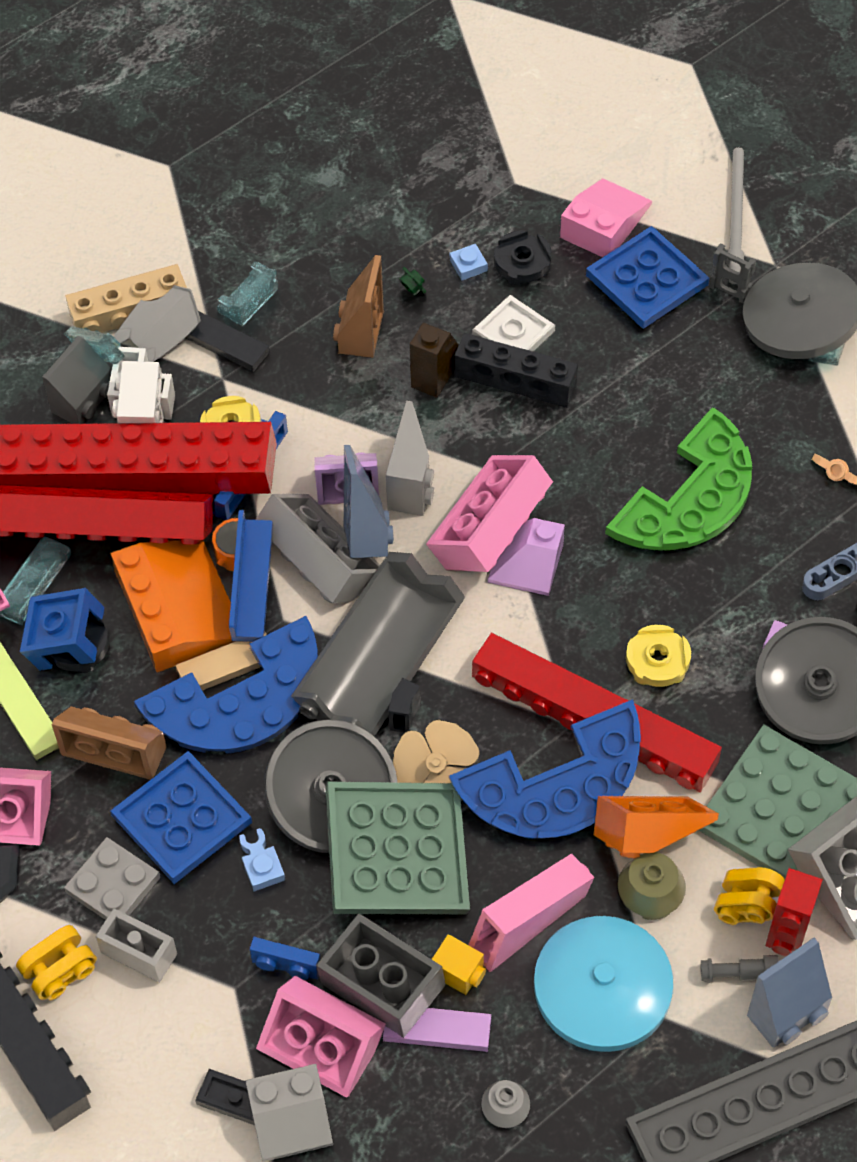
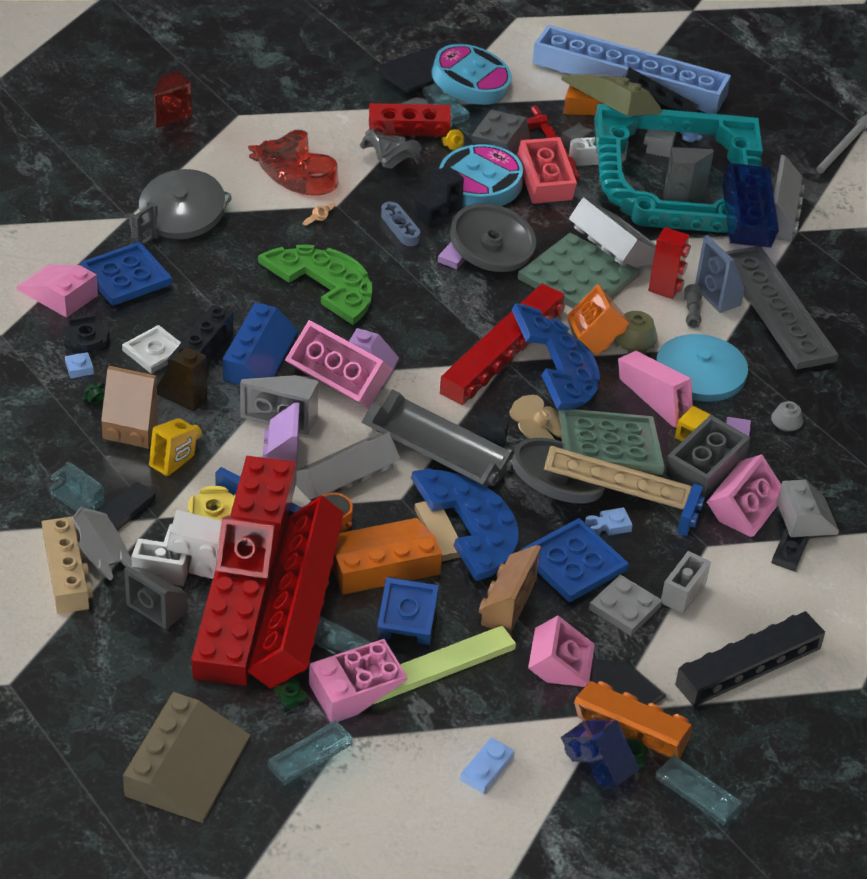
camera: 90 degrees left, 15 degrees down
(56, 963) = (695, 633): yellow brick -> none
(103, 344) = (110, 587): clear light blue plate -> none
(112, 436) = (247, 546): none -> red slope
(250, 579) = (377, 498): blue panel -> none
(313, 852) = (617, 477): none -> tan tile
(324, 366) = (173, 445): none -> yellow torso
(364, 520) = (330, 420): sand blue slope -> none
(528, 426) = (259, 345): none -> blue slope
(653, 672) = (467, 318): light yellow plate -> none
(736, 209) = (118, 231): light grey bar -> none
(748, 895) = (659, 281): yellow brick -> none

